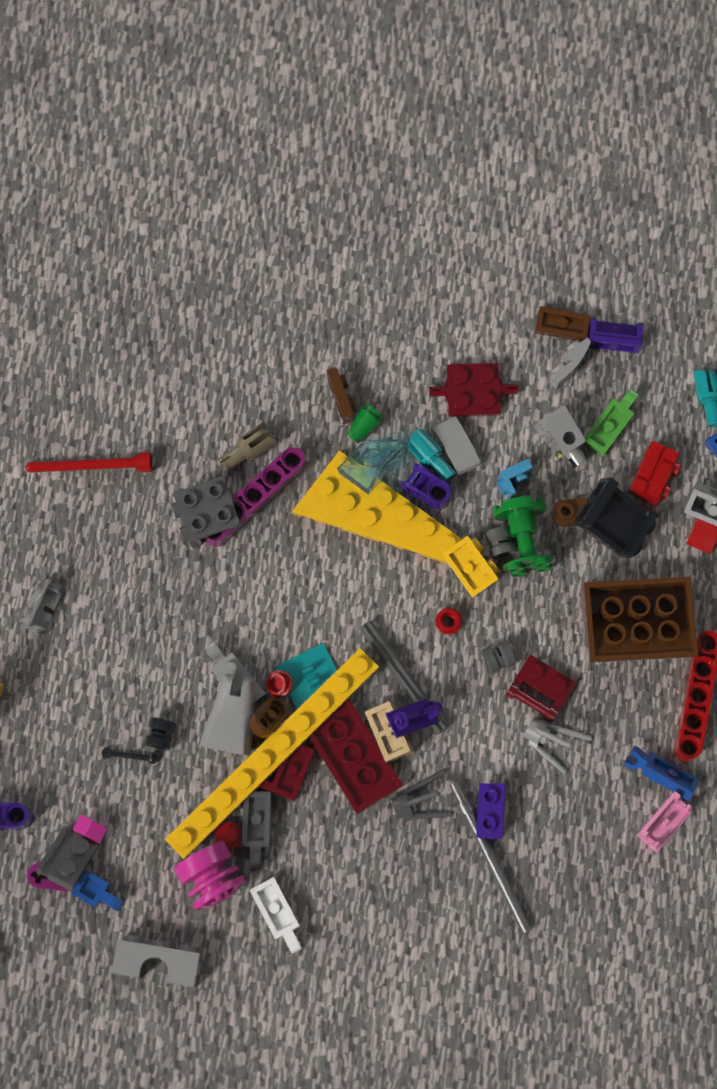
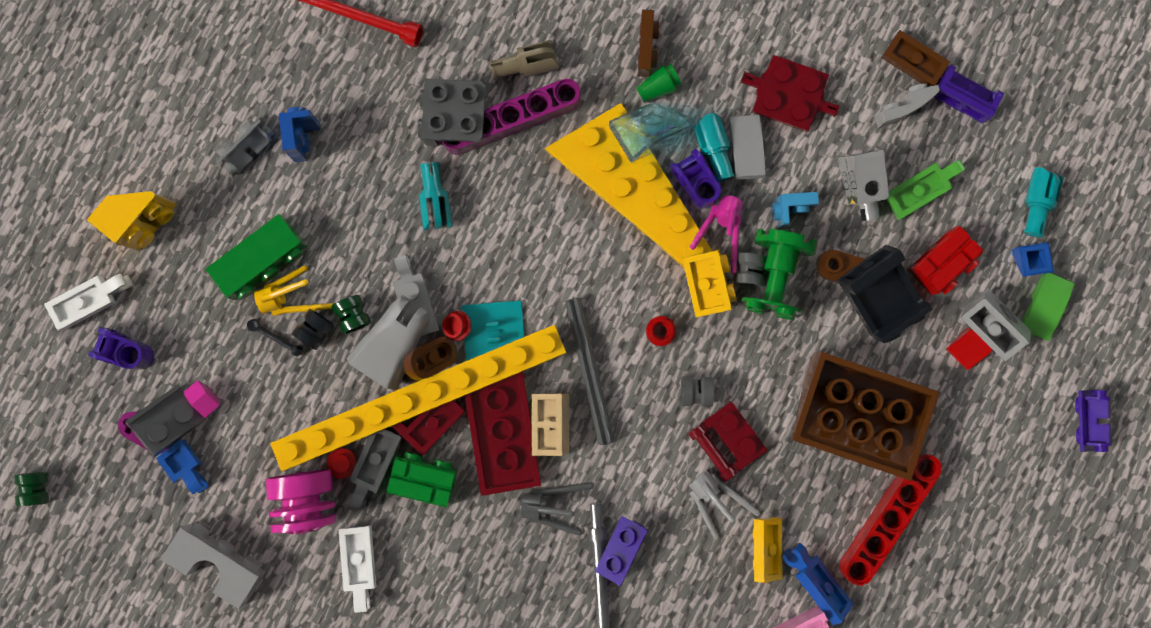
camera: 25 degrees right, 10 degrees up
(82, 571) = (292, 127): none -> blue bracket
(90, 694) = (257, 258): none -> green brick
(114, 720) = (273, 296): none -> yellow plant
(187, 709) = (351, 314): none -> dark green wheel
(218, 588) = (433, 194): none -> teal arm
(303, 820) = (422, 479): none -> green brick
(413, 717) = (579, 421): dark purple hinge -> none
(464, 506) = (728, 216): none -> dark pink plant
(610, 761) = (767, 549): none -> yellow plate

